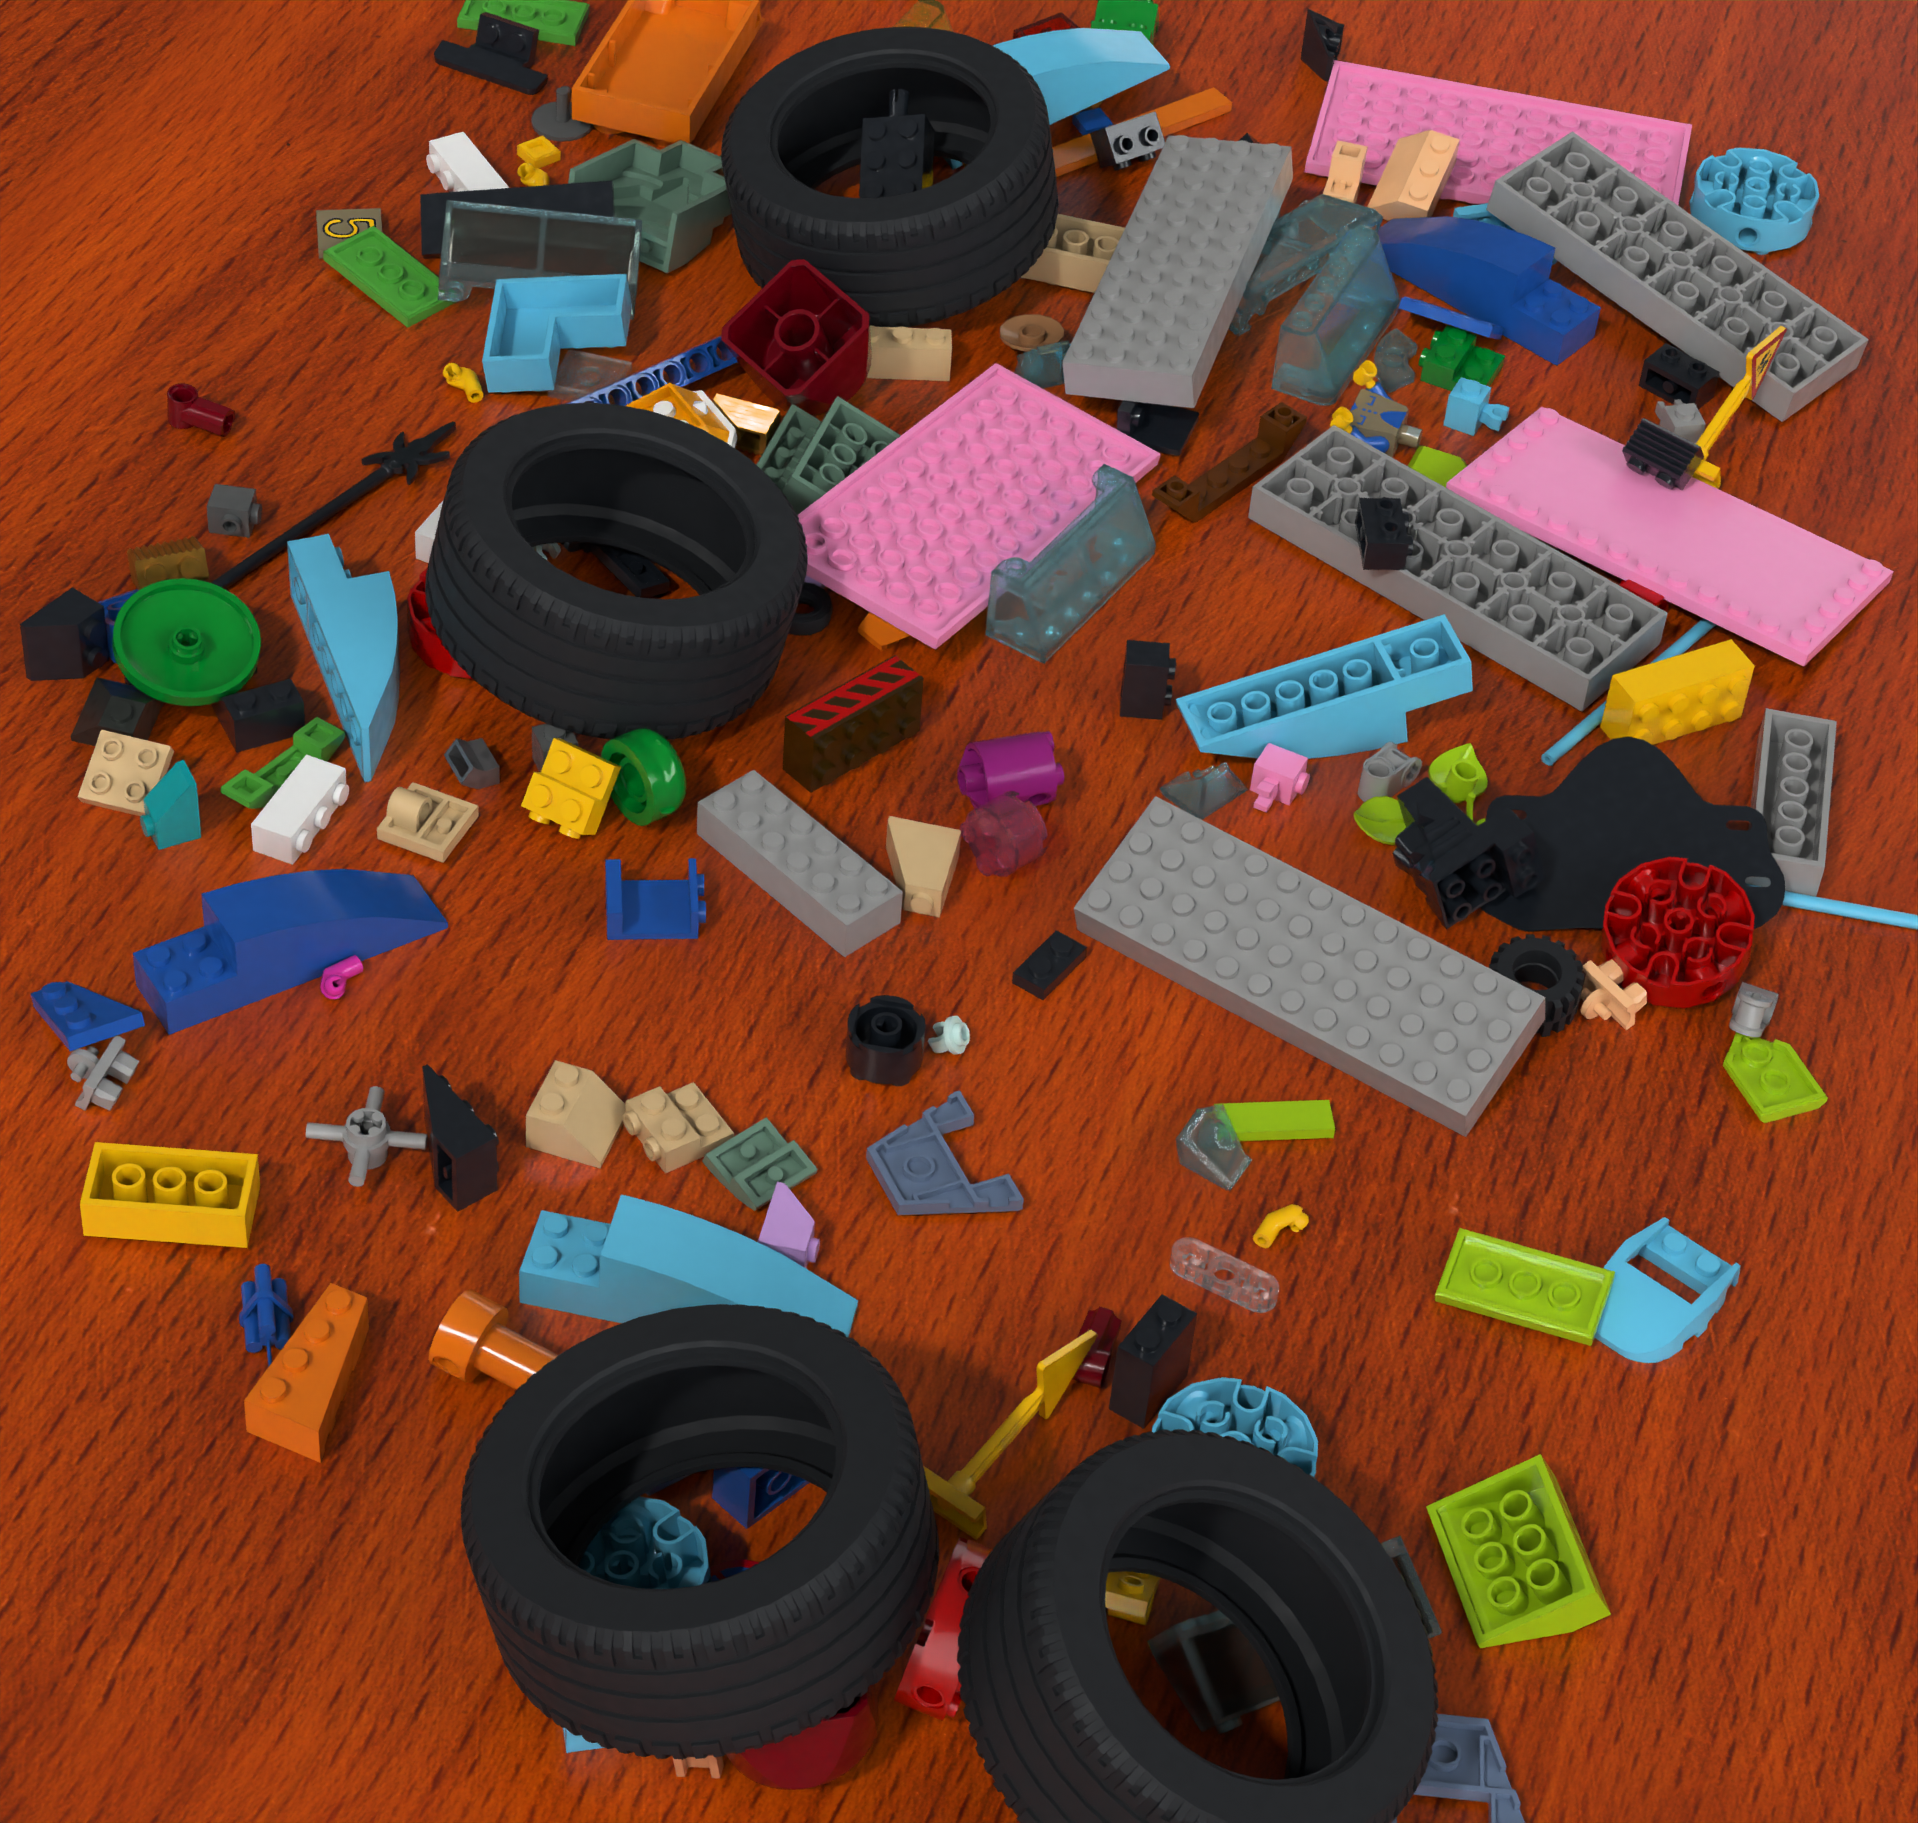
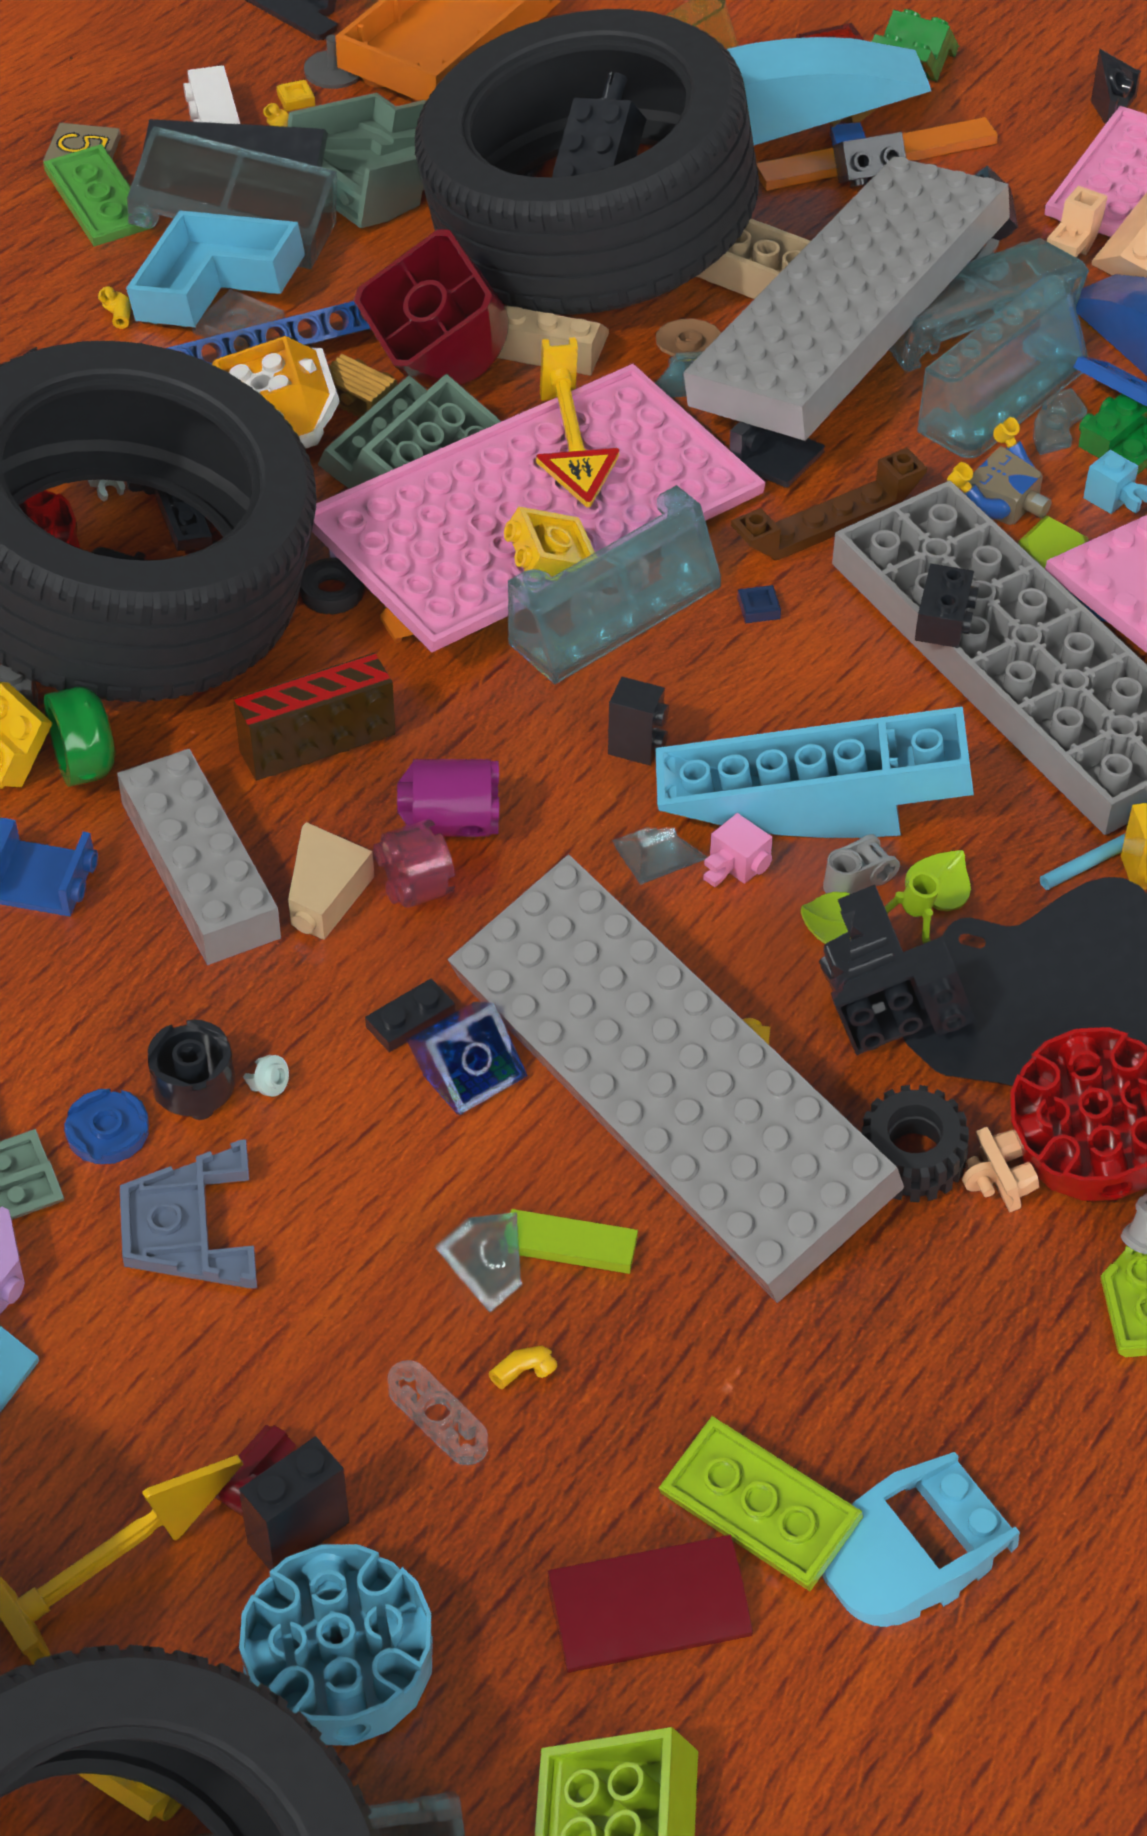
camera: 20 degrees right, 5 degrees up
(823, 1105) = (106, 1126): none -> blue tile
(996, 466) = (579, 469): none -> yellow piece
(1003, 533) = (547, 540): none -> yellow plate
(1120, 986) = (468, 1056): none -> clear blue slope
(1198, 563) = (759, 604): none -> dark blue tile
(1465, 1381) = (649, 1603): none -> dark red slope

